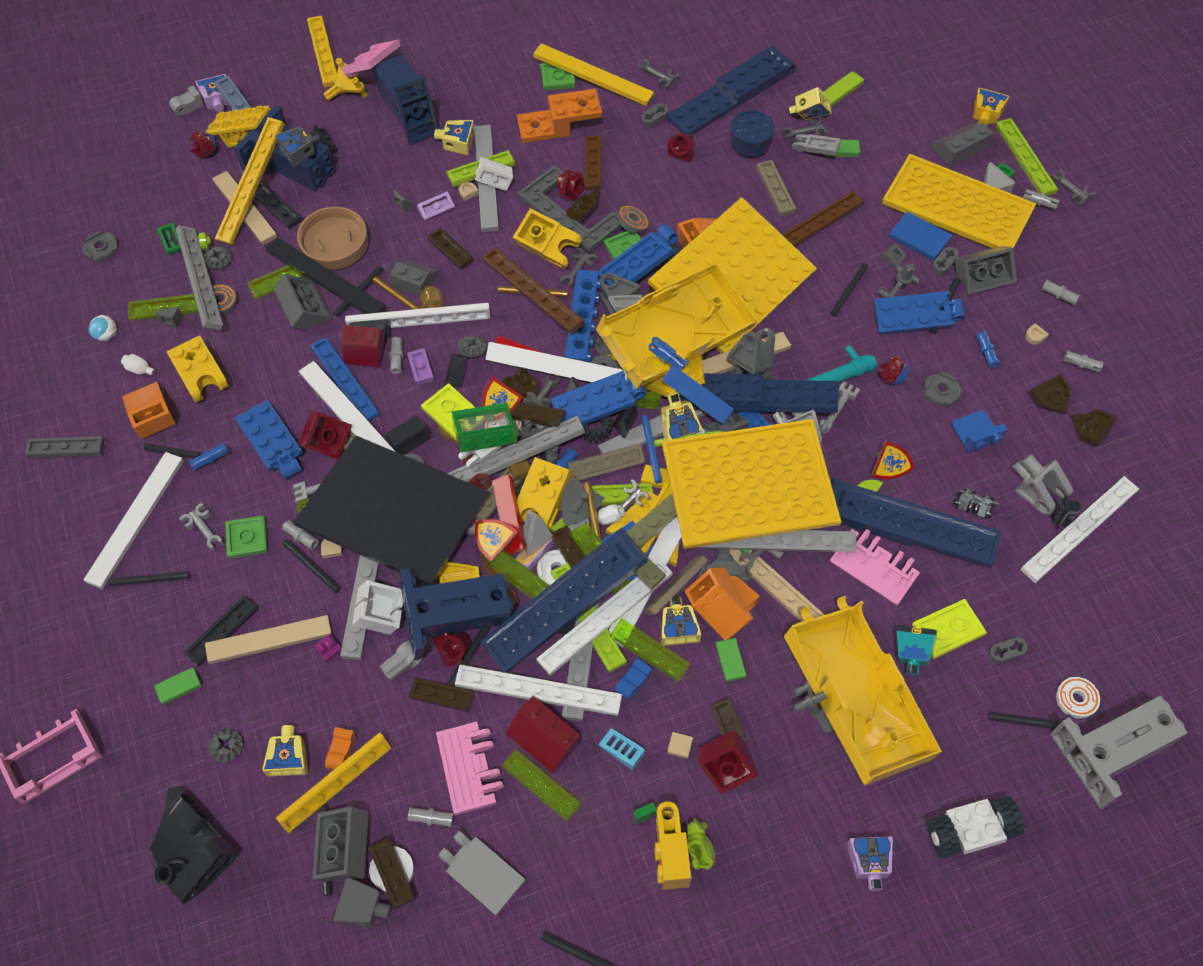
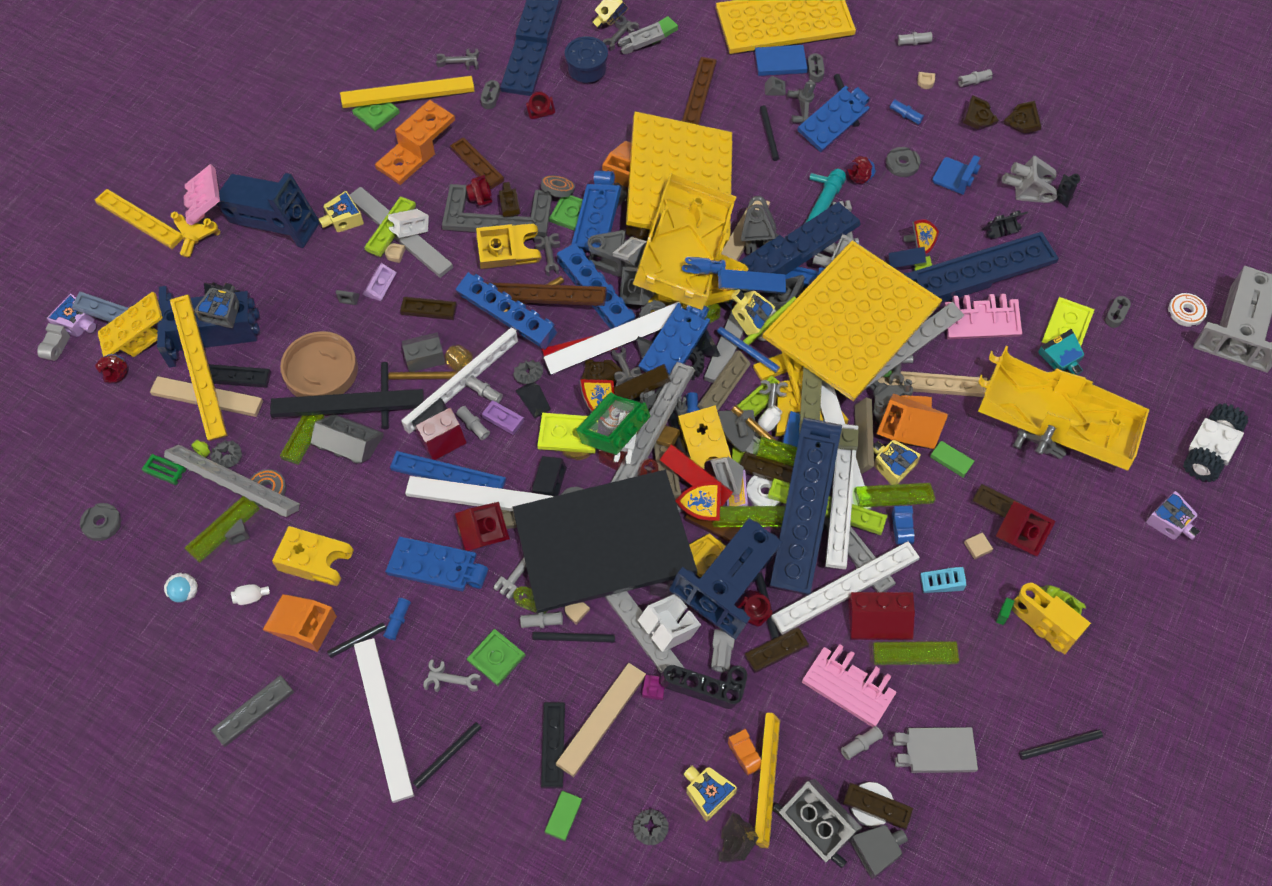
camera: 40 degrees left, 0 degrees up
(270, 806) = (738, 839): none -> clear smoke plate
(358, 672) = (701, 682): none -> black beam
(428, 336) = (483, 389): none -> light grey pin
(496, 288) = (541, 336): none -> blue brick
(776, 188) = (640, 91): dark tan tile -> none
(858, 470) = (908, 258): none -> dark blue slope
(986, 269) = (850, 54): dark grey slope -> none
(1022, 720) = (1173, 349): black bar -> none
(1079, 529) = (1082, 197): white tile -> none

